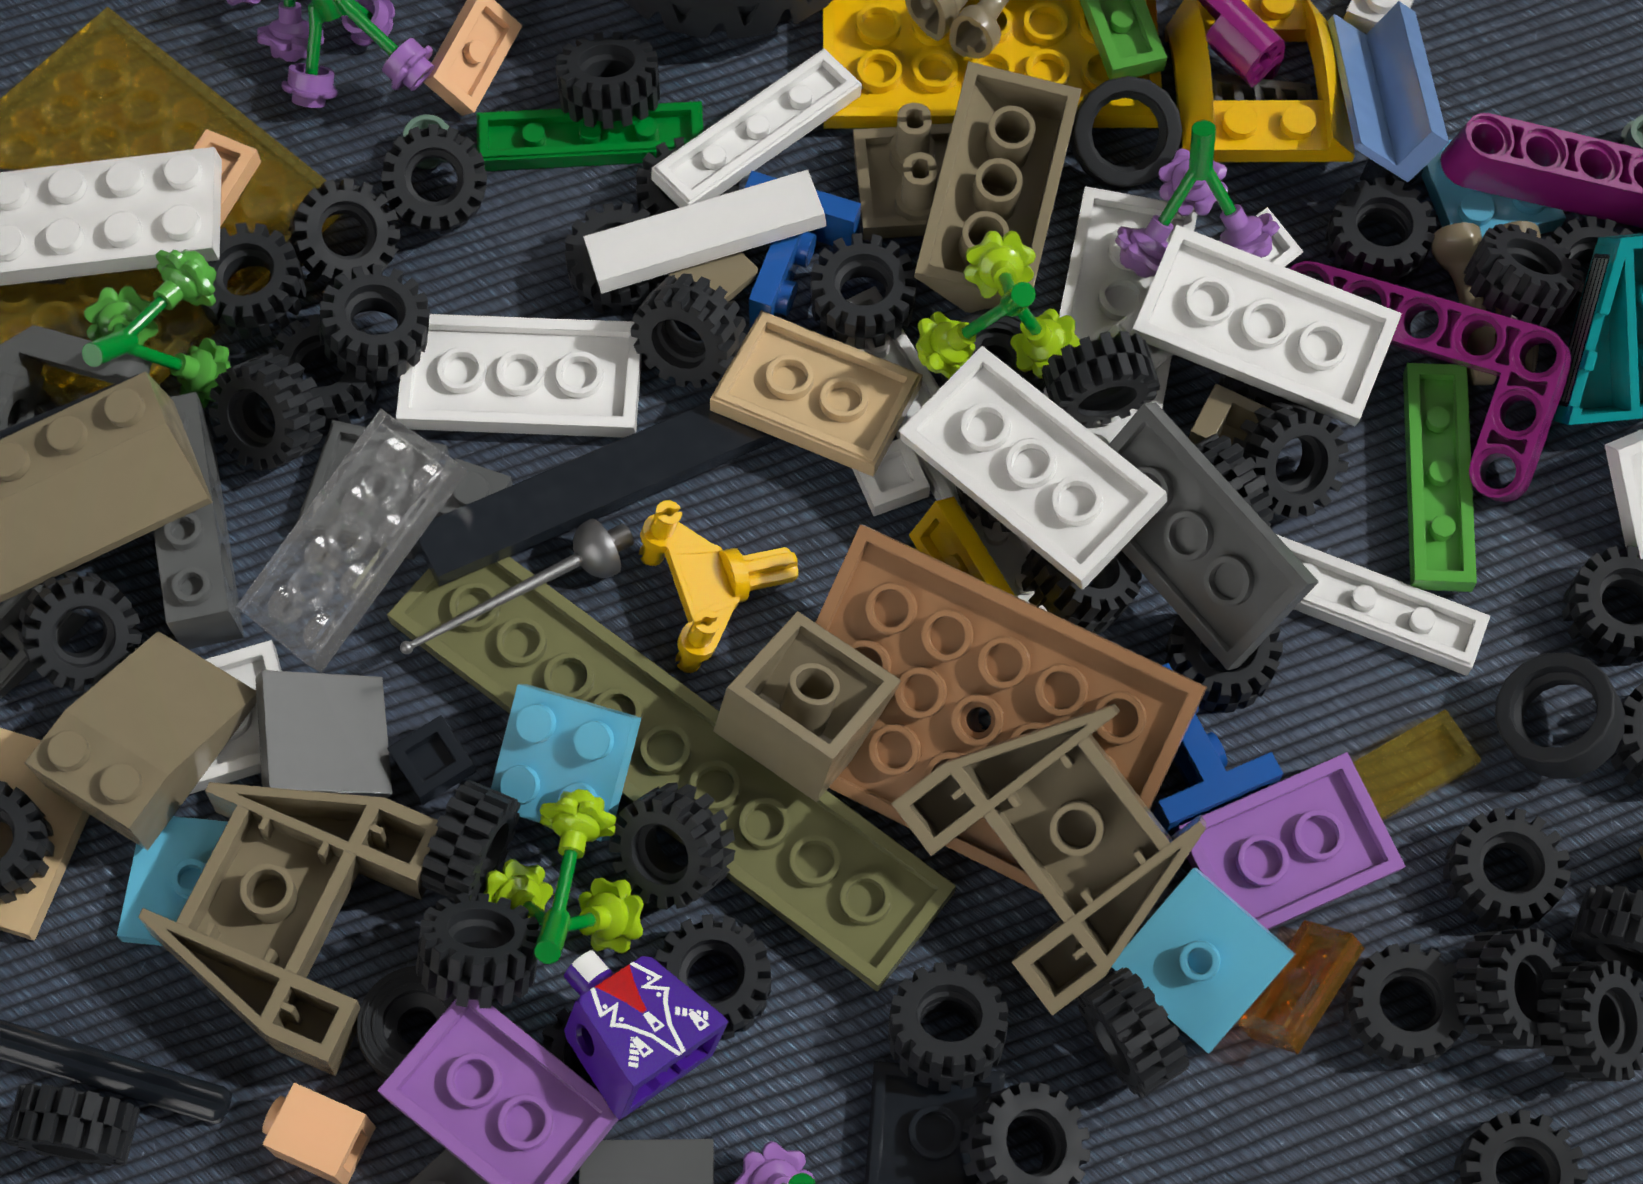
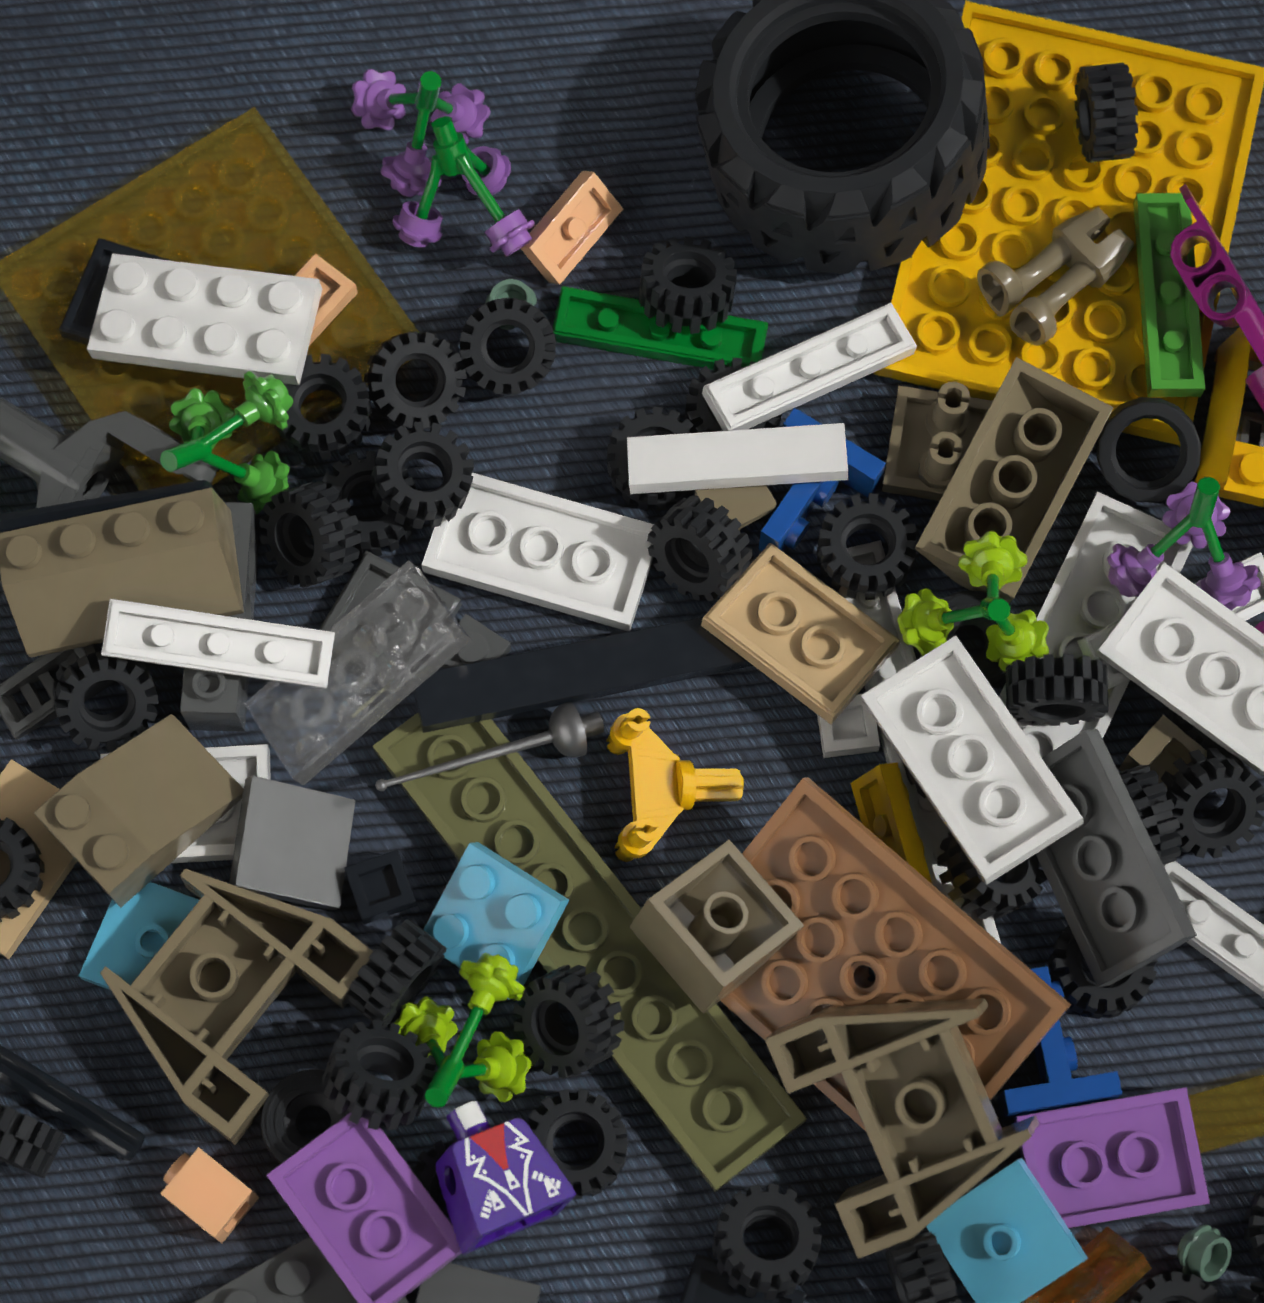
camera: 15 degrees right, 5 degrees up
(190, 539) = (217, 643): none -> white tile
(1414, 919) = (1204, 1253): none -> sand green plate

